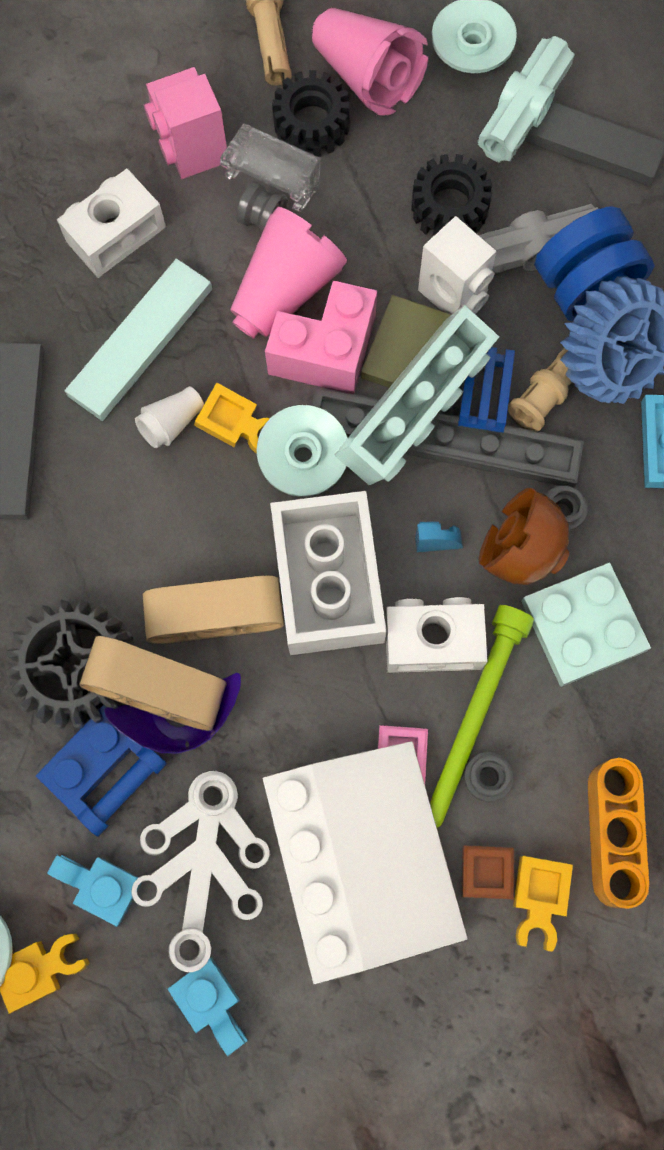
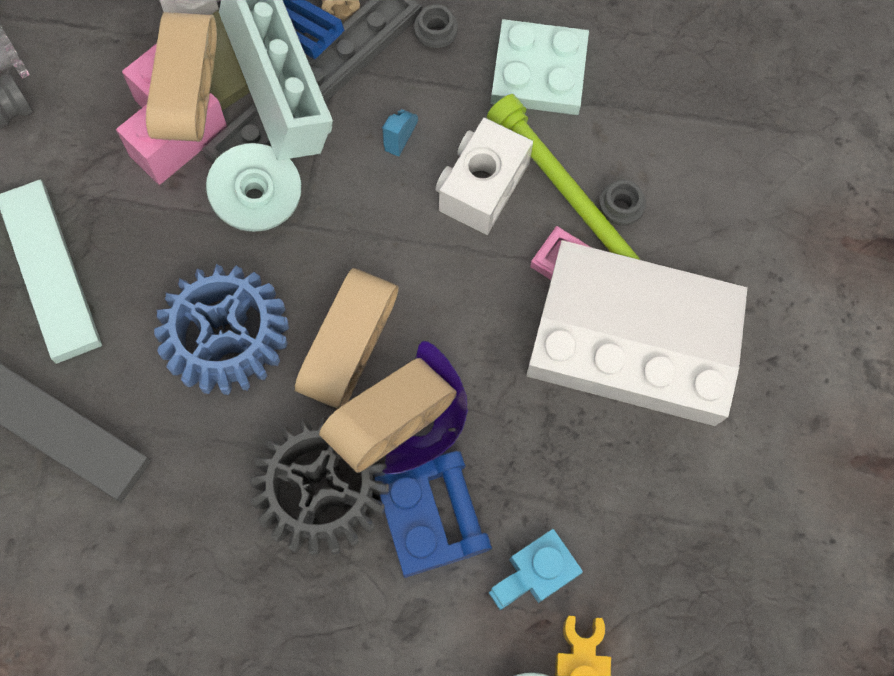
camera: 65 degrees left, 5 degrees down
(124, 500) = (237, 298): none -> medium blue gear
(166, 418) = (142, 282): white cone -> none
(203, 859) = (567, 464): white plant -> none
(205, 1001) = (687, 529): medium azure plate -> none
(229, 417) = (181, 231): yellow plate -> none
(283, 272) = (80, 108): bright pink cone -> none
(328, 573) = (378, 221): white brick -> none
(346, 331) = (181, 77): none -> tan beam
(487, 872) = (698, 247): dark orange tile -> none
(529, 540) = (446, 60): dark orange cylinder -> none
(543, 891) = (738, 214): yellow plate -> none
(605, 856) = (744, 132): light orange beam -> none

